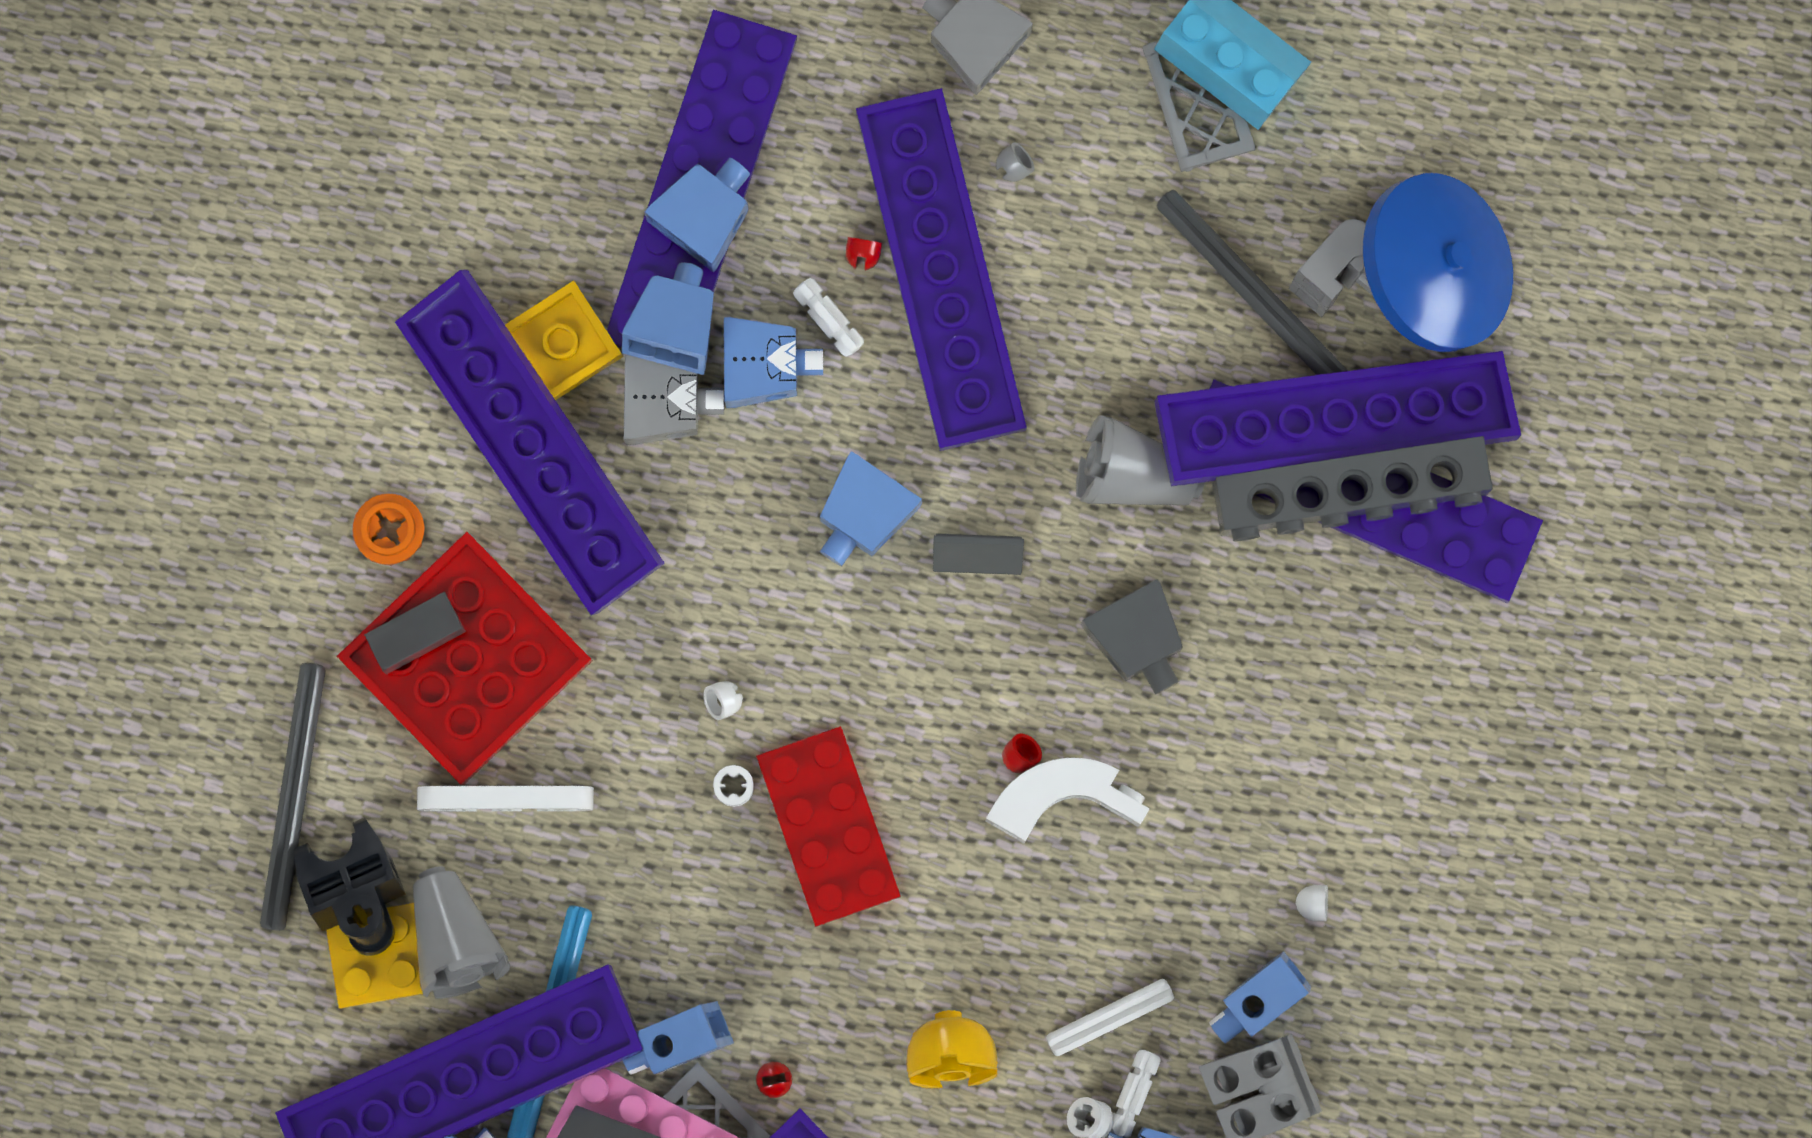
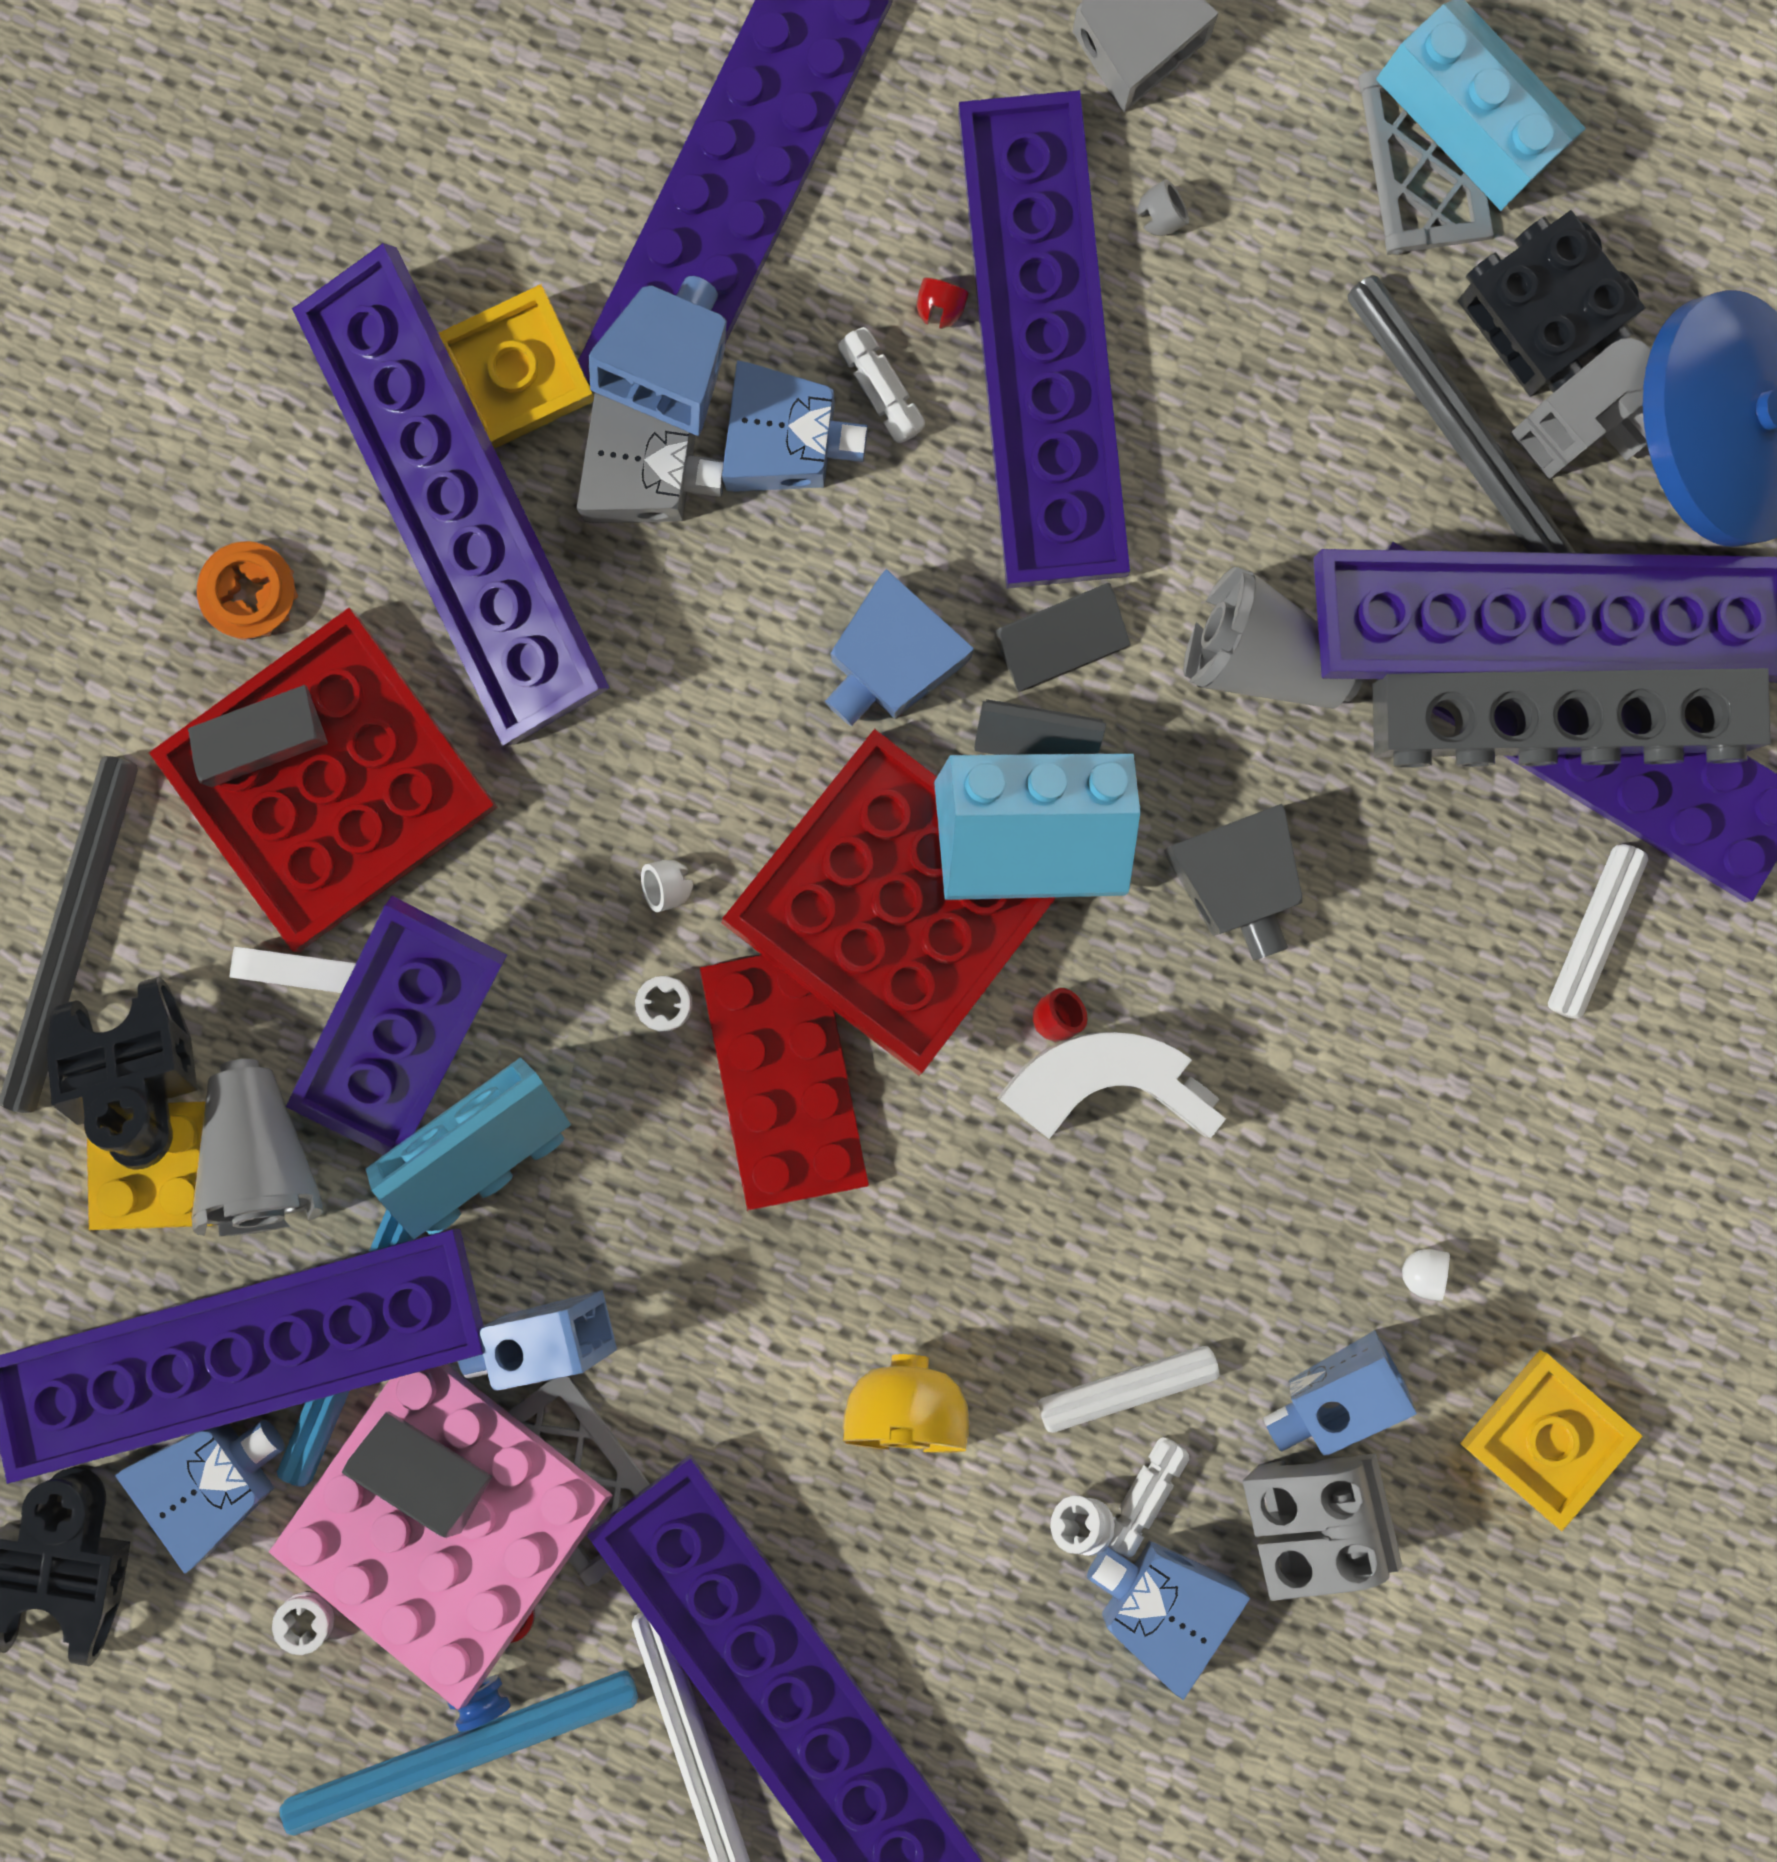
camera: 10 degrees right, 5 degrees up
(546, 829) = (395, 1027): none -> dark purple plate
(611, 906) = (468, 1150): none -> medium azure slope
(702, 211) = (727, 209): medium blue torso -> none
(772, 1069) = (662, 1396): red hinge -> none
(891, 687) = (863, 911): none -> red plate
(985, 481) = (1062, 637): none -> dark grey slope
(985, 618) = (1037, 825): none -> medium azure slope
(1302, 192) = (1551, 302): none -> black brick
(1402, 638) = (1598, 931): none -> white axle
(1419, 1009) = (1551, 1440): none -> yellow plate

